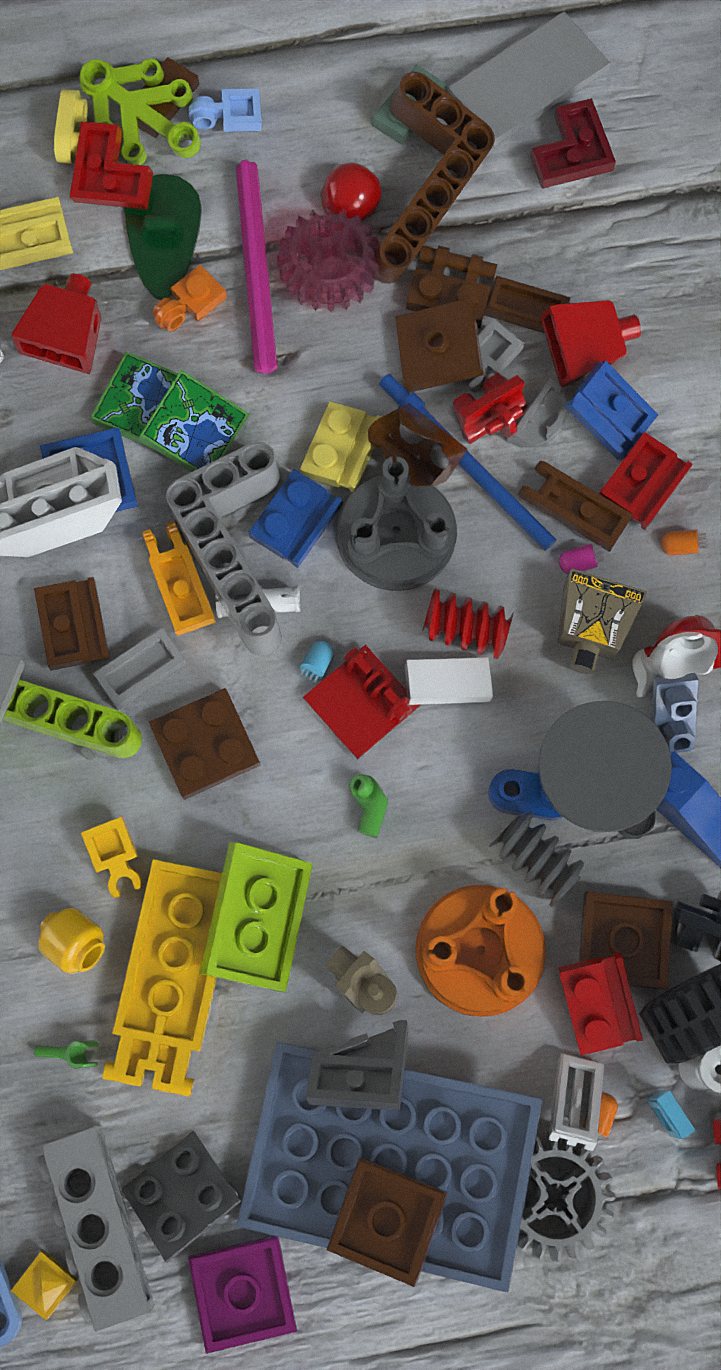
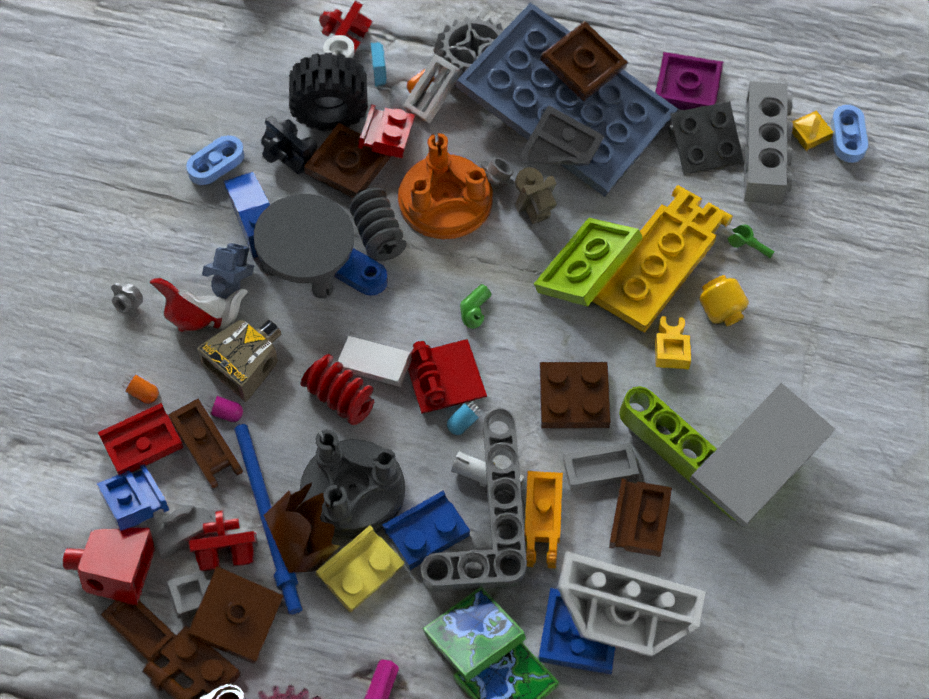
camera: 150 degrees left, 15 degrees down
(424, 1018) = (498, 172): none -> light grey plate

